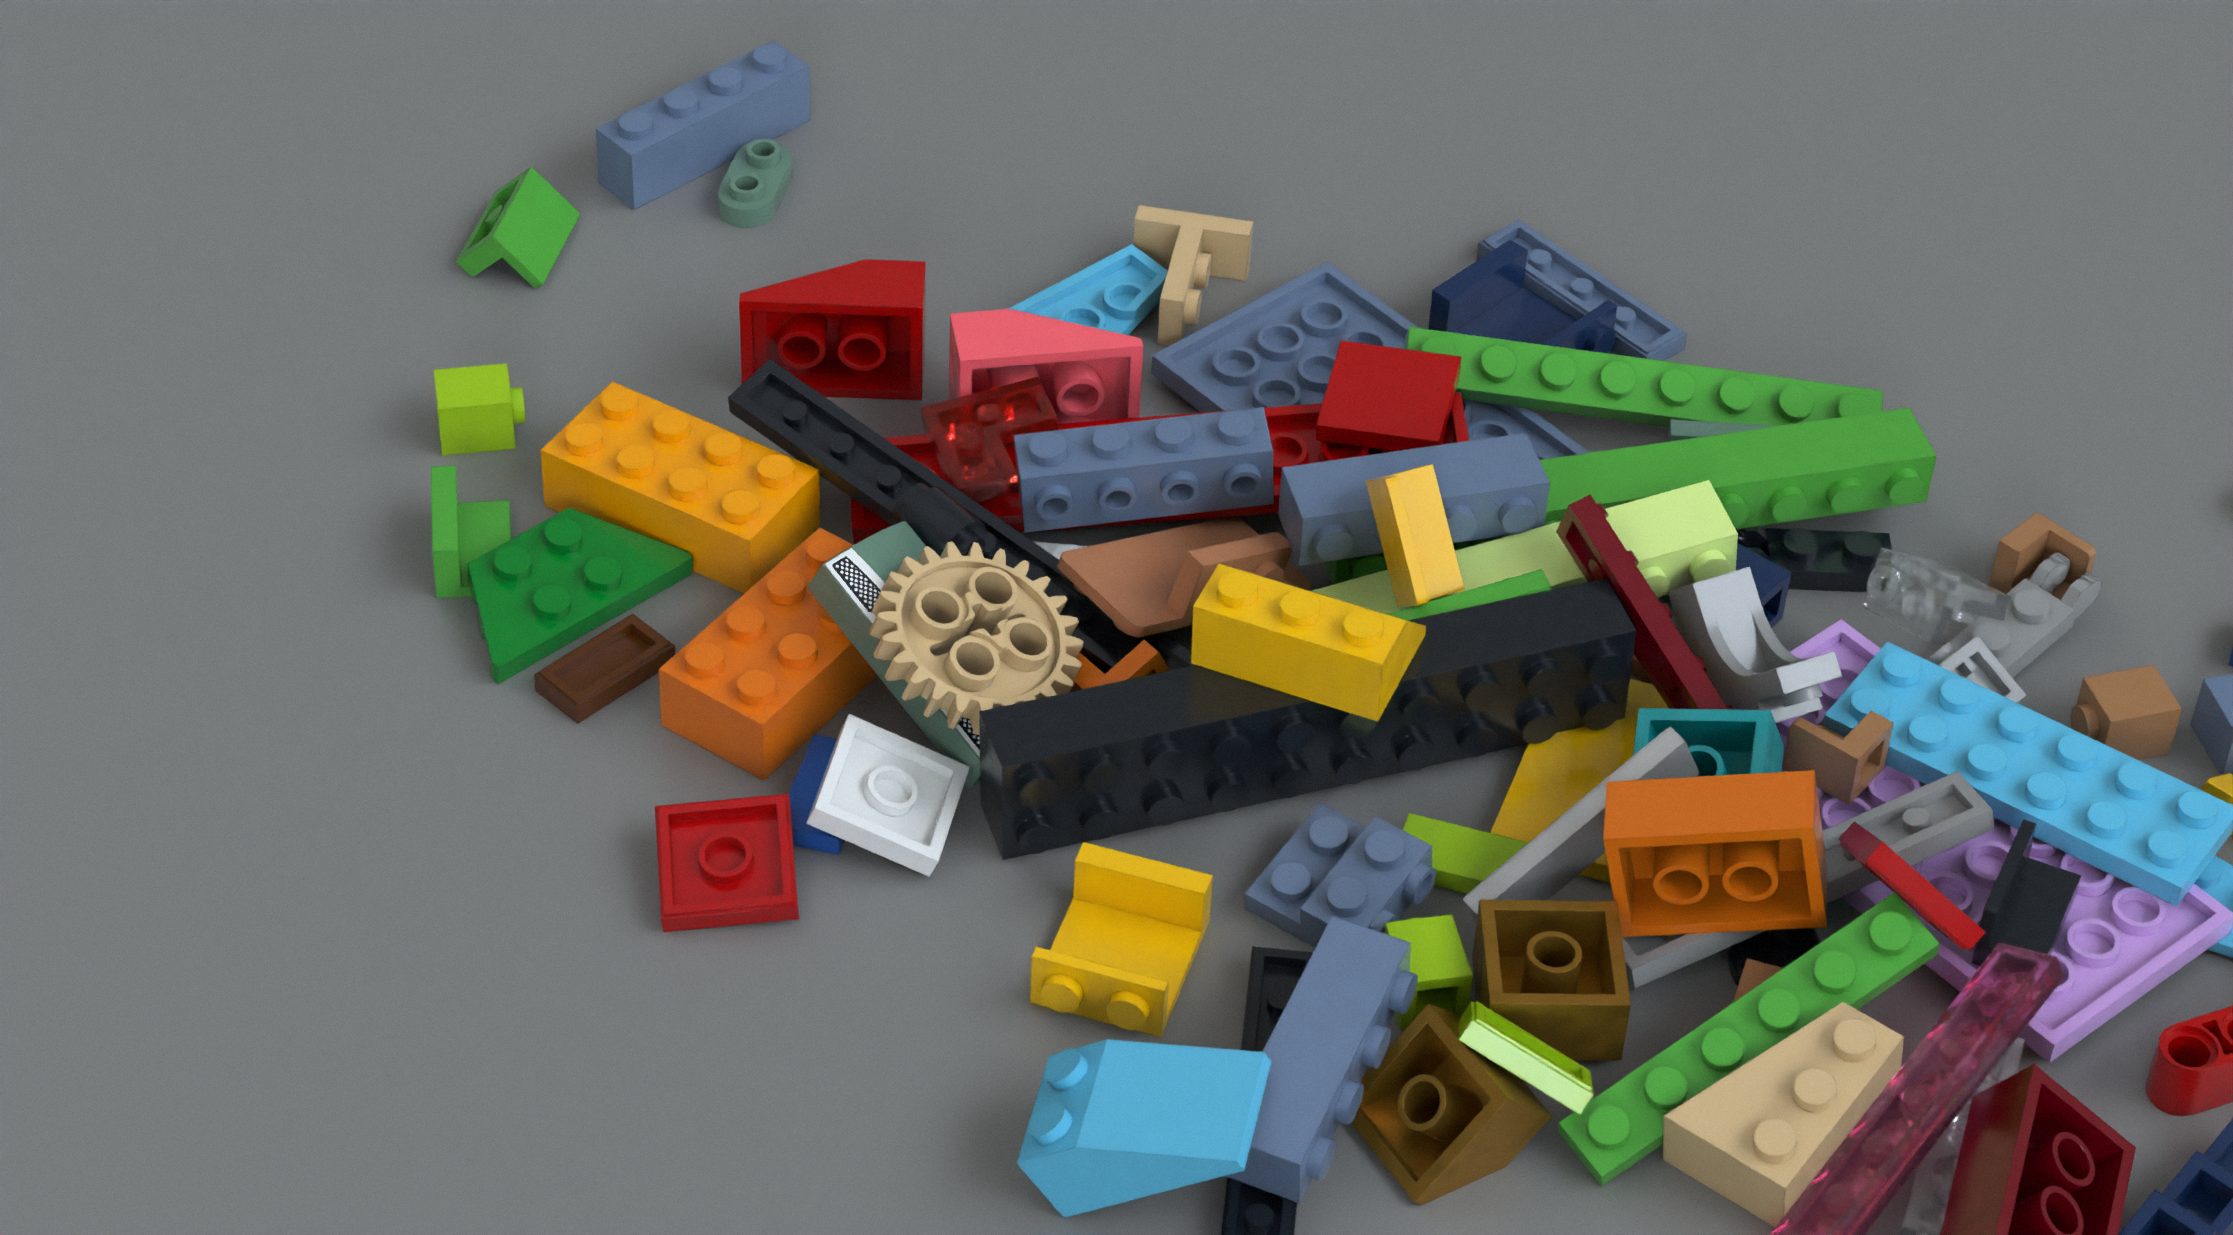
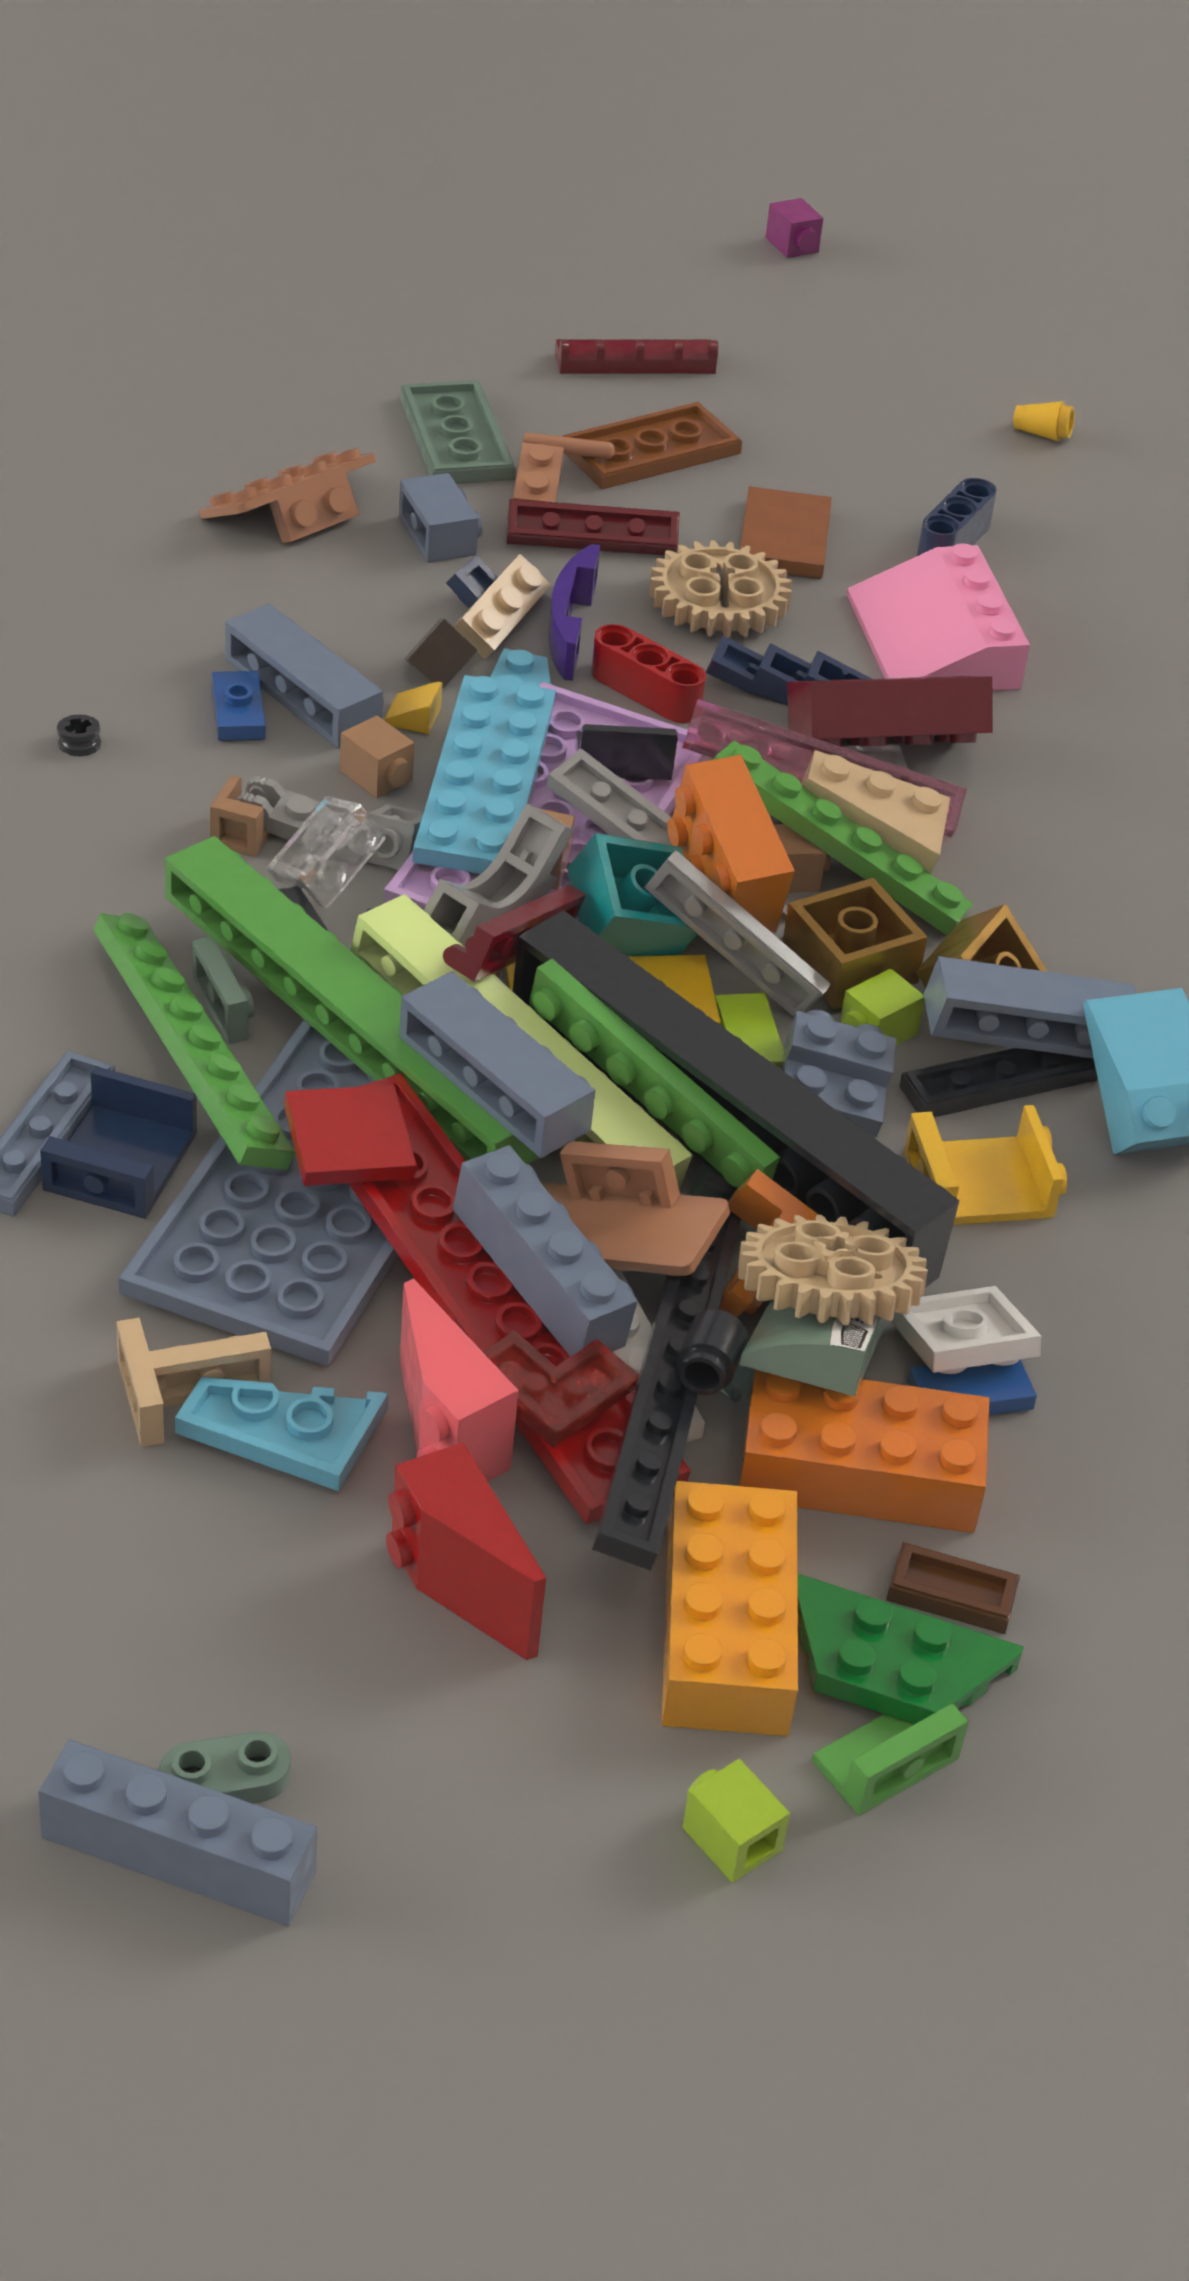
camera: 120 degrees left, 0 degrees up
(523, 226) = (440, 1937): bright green panel -> none
(726, 863) = (1096, 1408): red tile -> none
(1301, 641) = (718, 1051): yellow slope -> none
(1415, 535) = (576, 1035): yellow panel -> none
(1526, 1056) = (945, 923): lime tile -> none
(1911, 886) = (707, 745): red tile -> none

